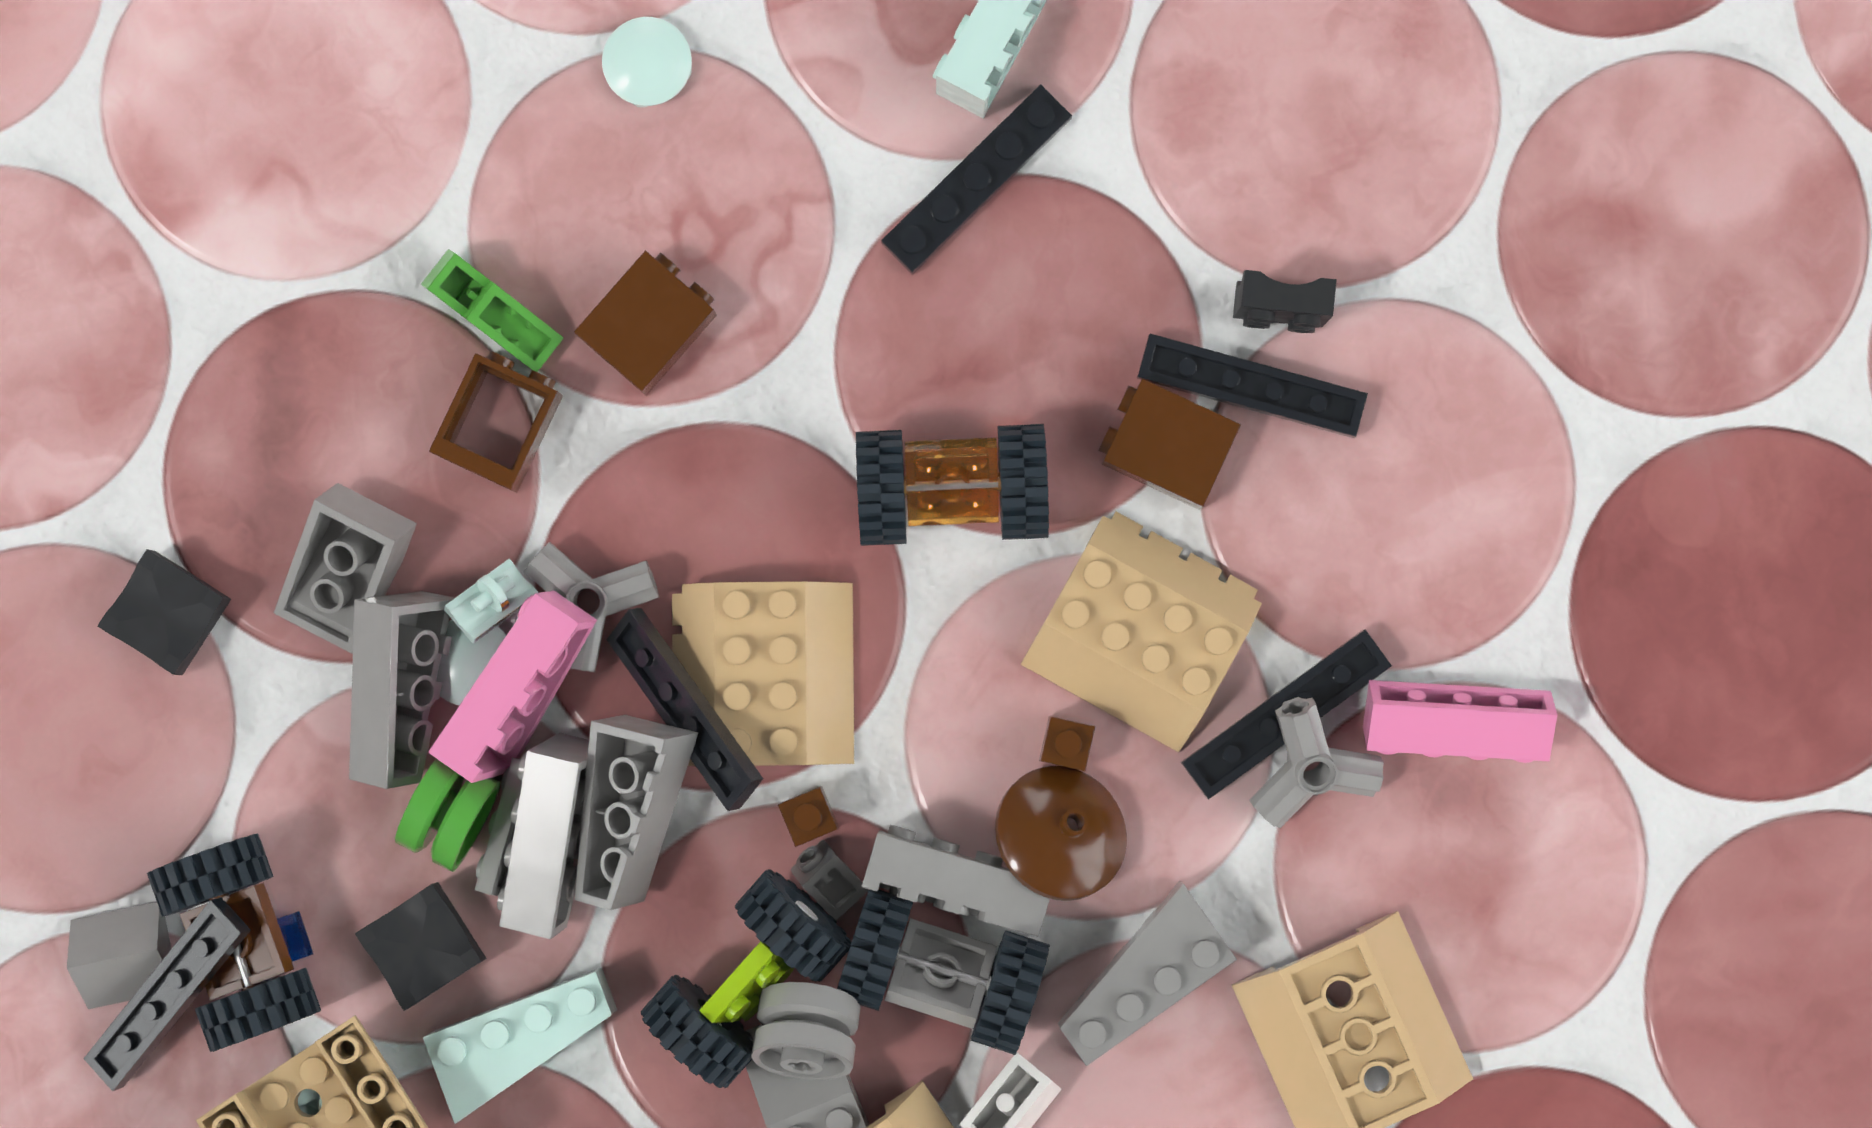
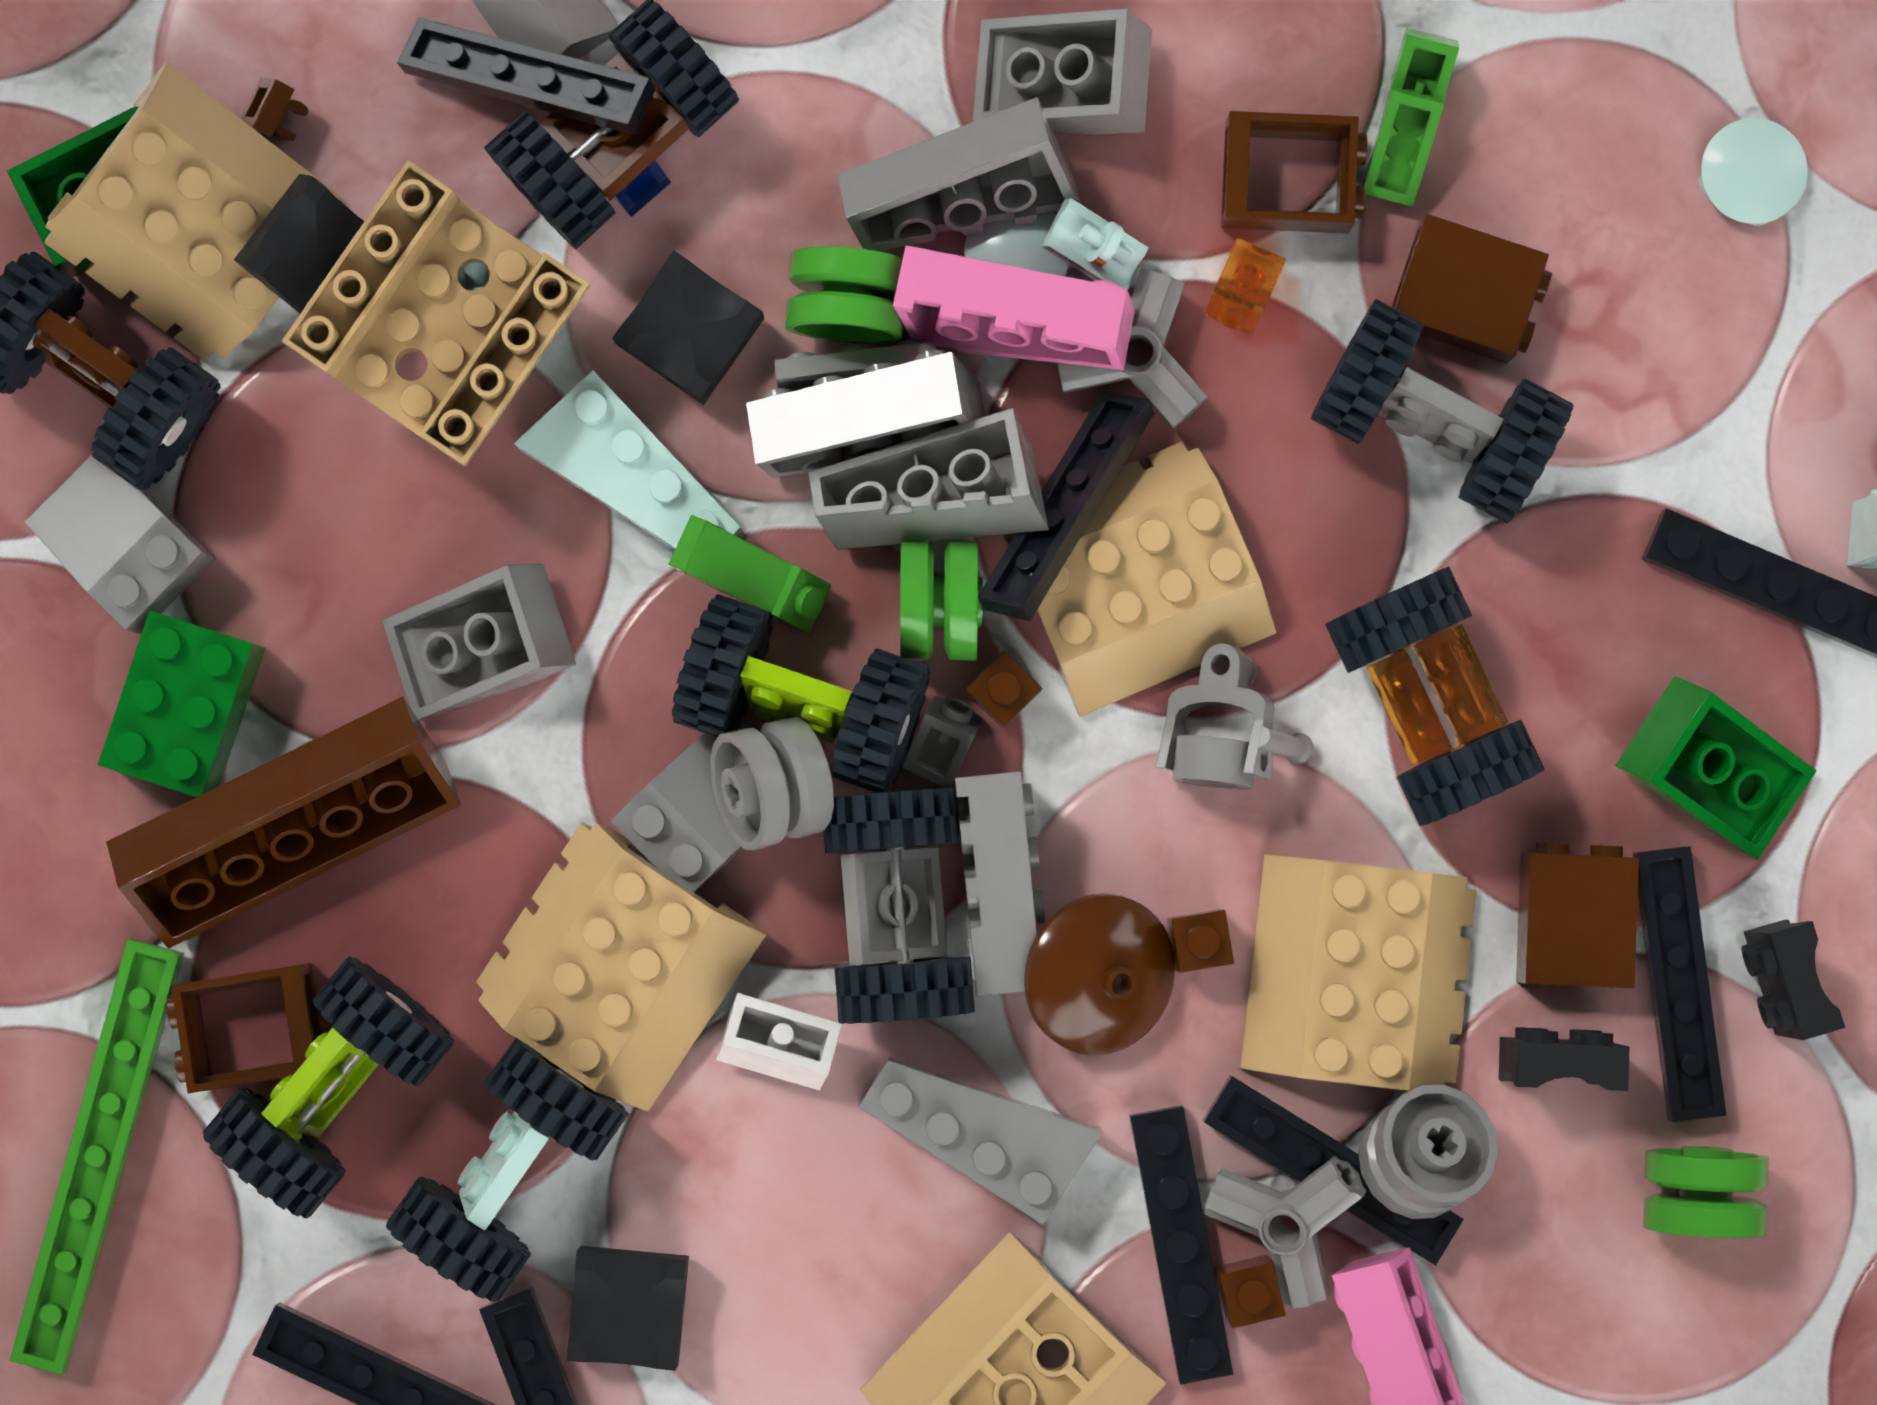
camera: 65 degrees right, 0 degrees up
(571, 495) = (1244, 286): none -> clear orange bracket
(635, 980) = (749, 574): none -> bright green slope
(718, 839) = (939, 601): none -> bright green wheel
(781, 342) = (1504, 448): none -> black plate
(936, 668) = (1225, 761): none -> light grey piece
(1097, 287) = (1716, 766): none -> green slope
(1264, 519) = (1540, 1056): none -> black brick
(1294, 661) = (1428, 1151): none -> light grey wheel
(1296, 855) = (1181, 1244): none -> black plate
(1353, 818) = (1250, 1291): none -> reddish brown brick
(1423, 437) = (1705, 1193): none -> bright green wheel

